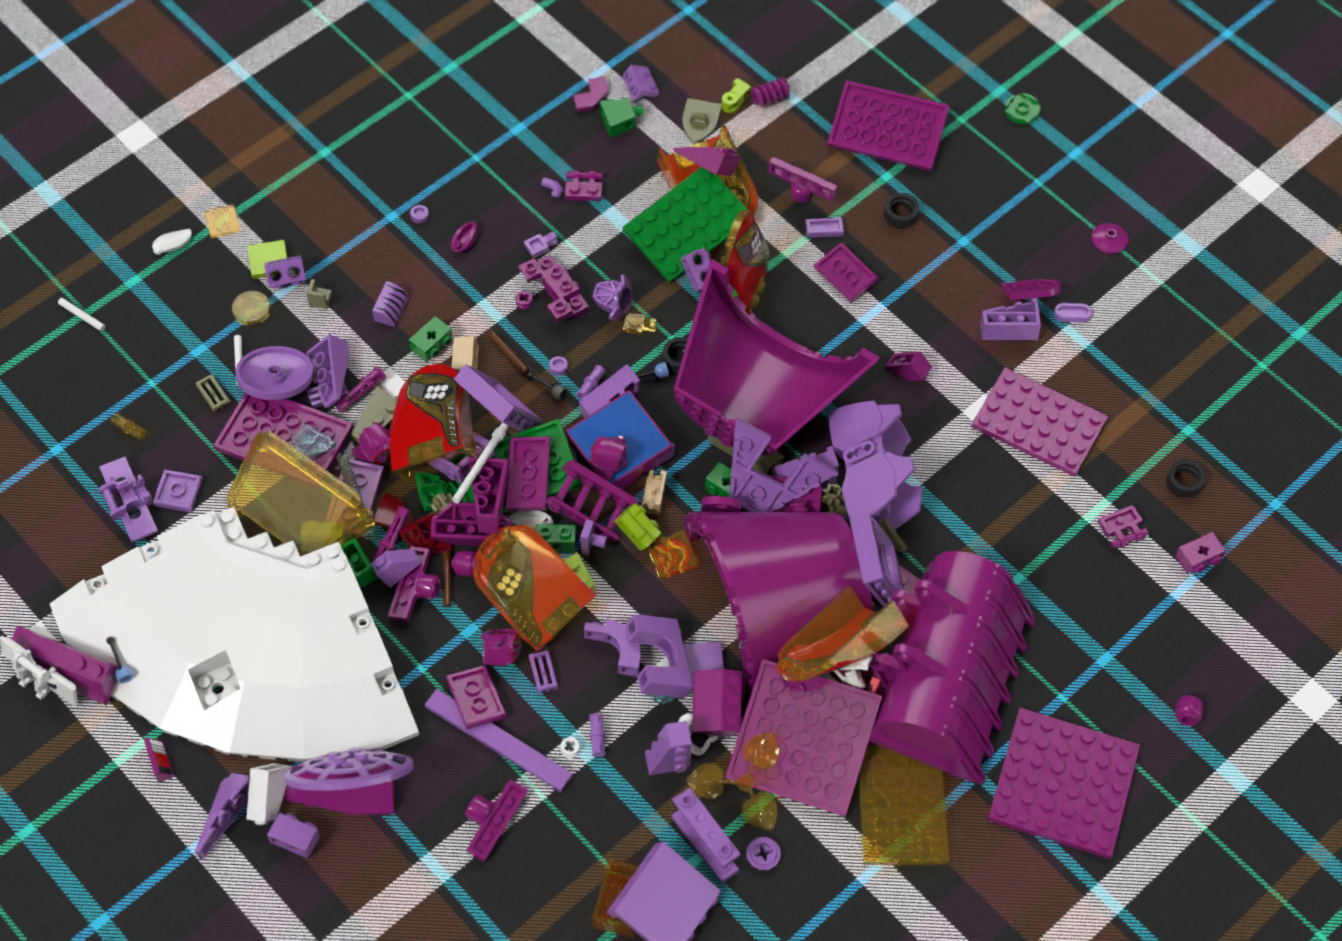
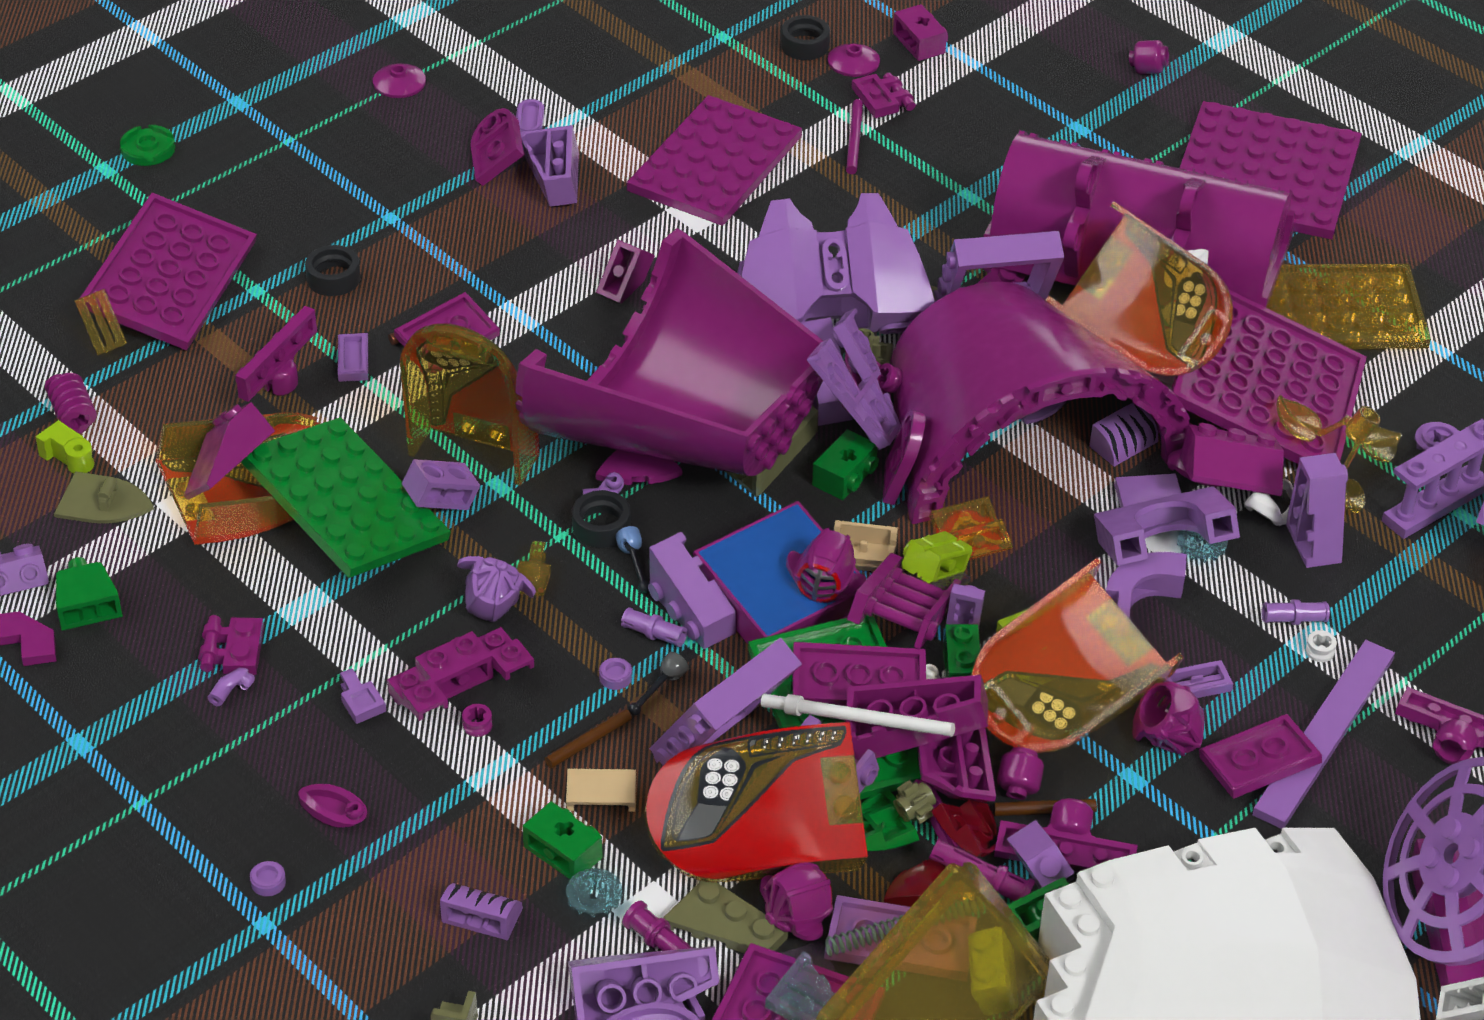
camera: 90 degrees left, 15 degrees down
(393, 350) = (580, 888): none -> clear light blue gear
(834, 95) = (110, 316): none -> clear yellow tile
(1073, 508) = (854, 136): none -> magenta bar
(1167, 519) = (853, 60): none -> magenta dish

